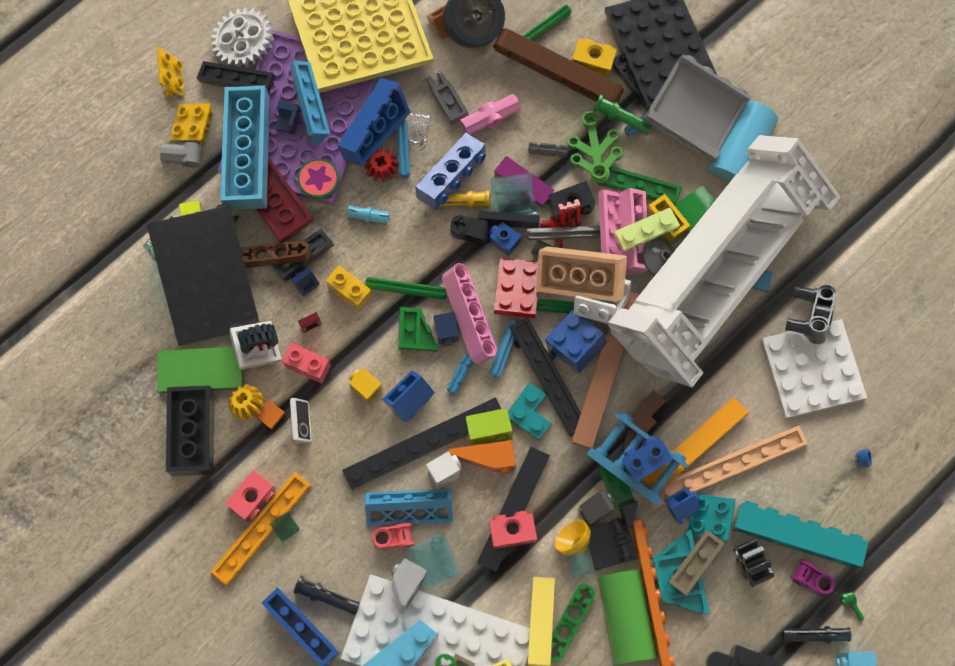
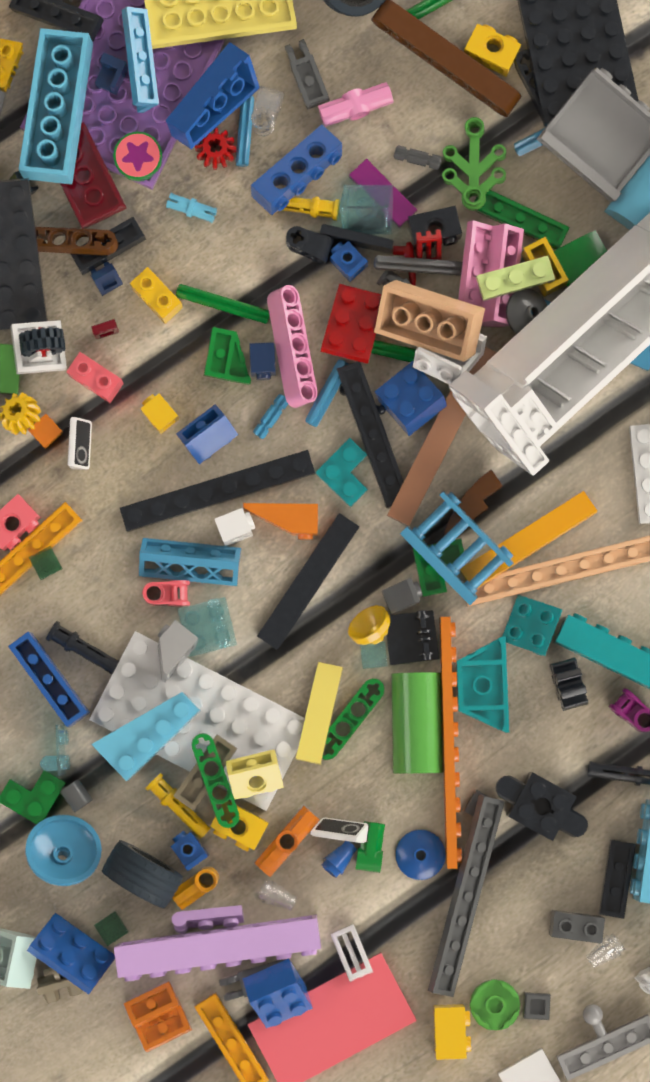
camera: 10 degrees right, 10 degrees up
(489, 427) = (294, 484): lime panel -> none
(502, 538) = (290, 615): coral brick -> none
(613, 110) = (503, 122): green pin -> none
(627, 511) = (437, 603): black slope -> none
(646, 459) = (466, 551): blue brick -> none
(683, 504) = (501, 606): blue brick -> none
(696, 563) = (504, 674): dark tan plate -> none

